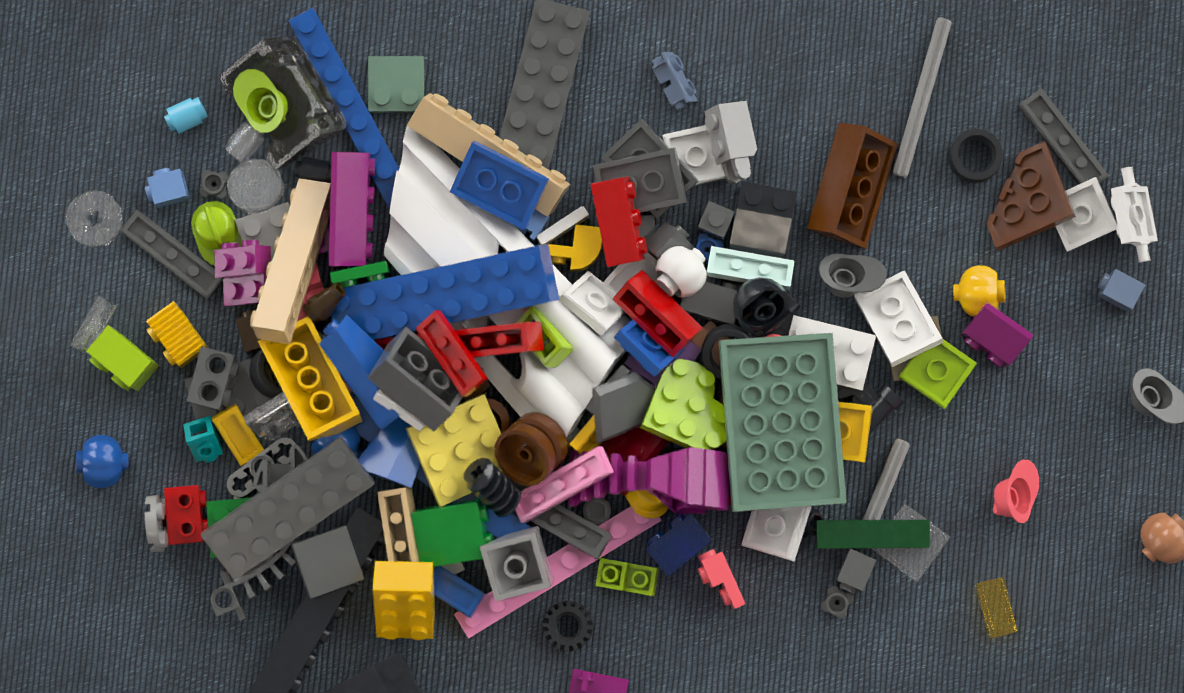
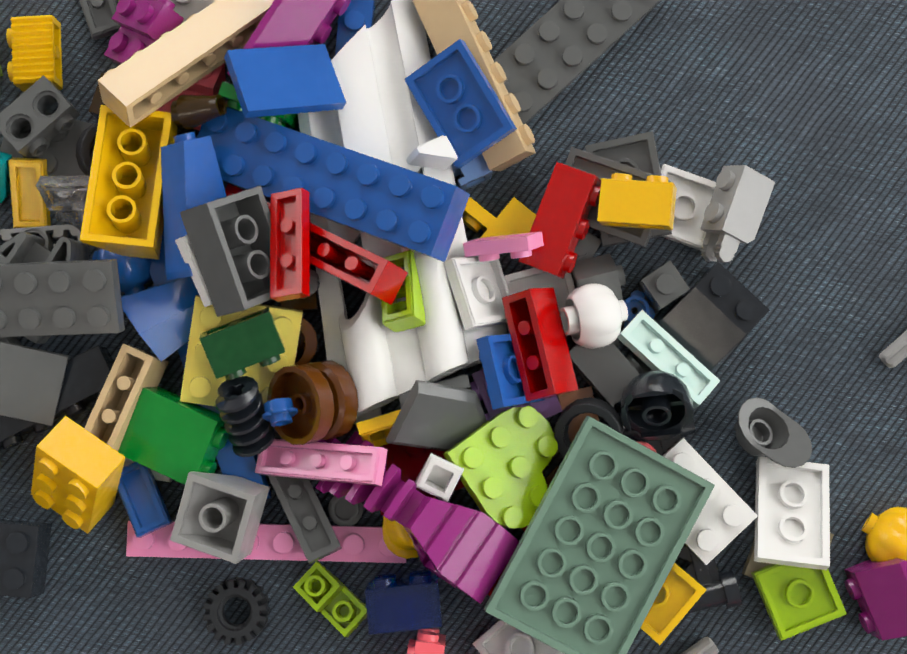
camera: 35 degrees right, 0 degrees up
(372, 245) = (284, 80): none -> blue tile
(461, 439) = (242, 344): none -> dark green brick
(504, 230) = (433, 154): none -> white slope
(514, 468) = (279, 411): none -> blue plate
(563, 226) = (501, 191): white tile -> none
(584, 268) = (491, 247): none -> bright pink plate
(647, 443) = (439, 477): none -> white slope
(662, 177) = (636, 202): none -> yellow brick
(681, 88) = (713, 128): sand blue hinge -> none
(852, 185) = (830, 339): reddish brown slope -> none

